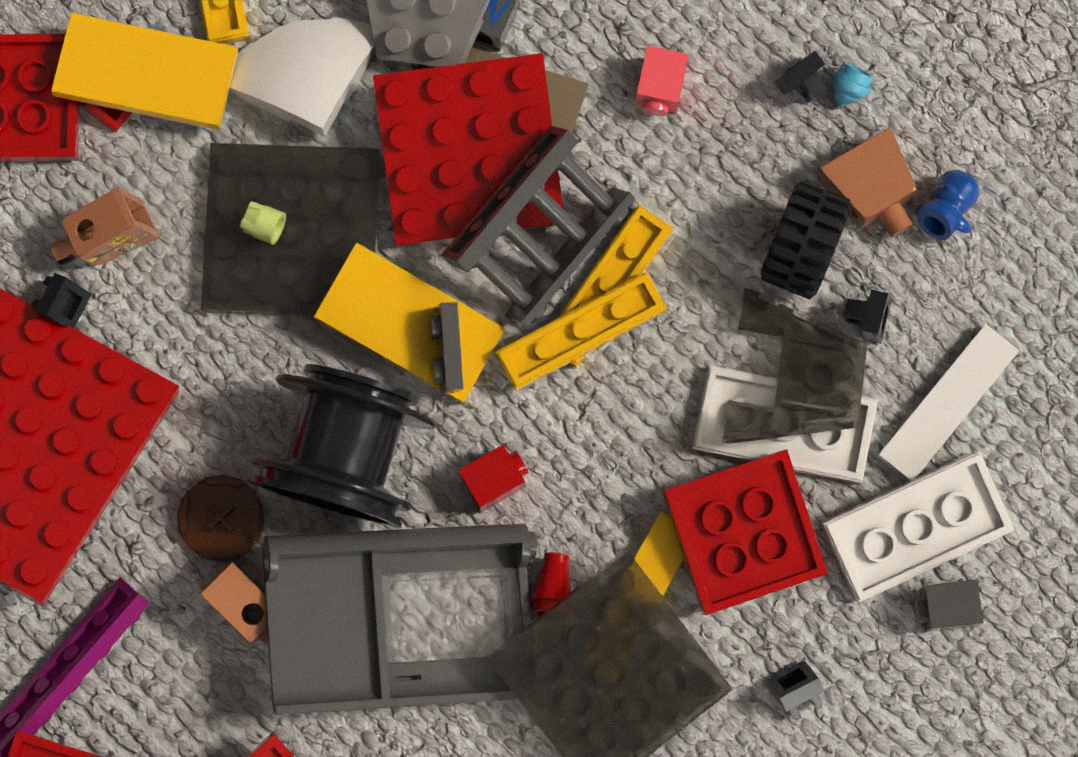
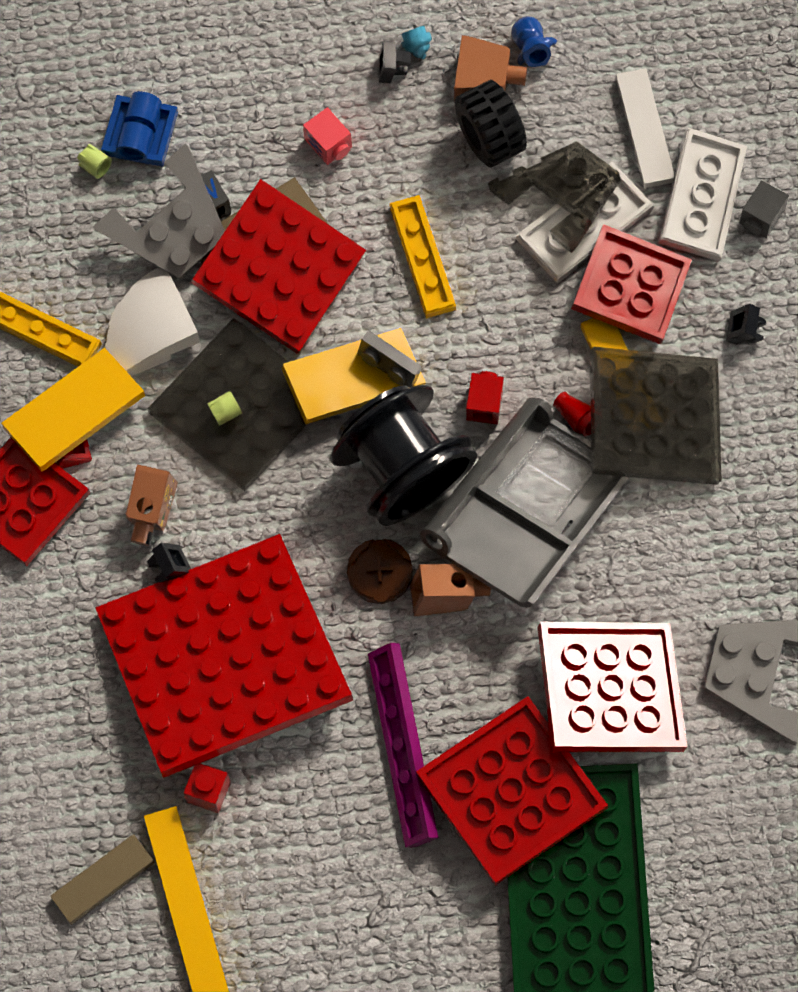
camera: 50 degrees left, 10 degrees down
(500, 214) = (337, 273): dark grey fence -> none
(581, 331) = (439, 286): yellow tile -> none
(870, 315) = (560, 128): black tile -> none

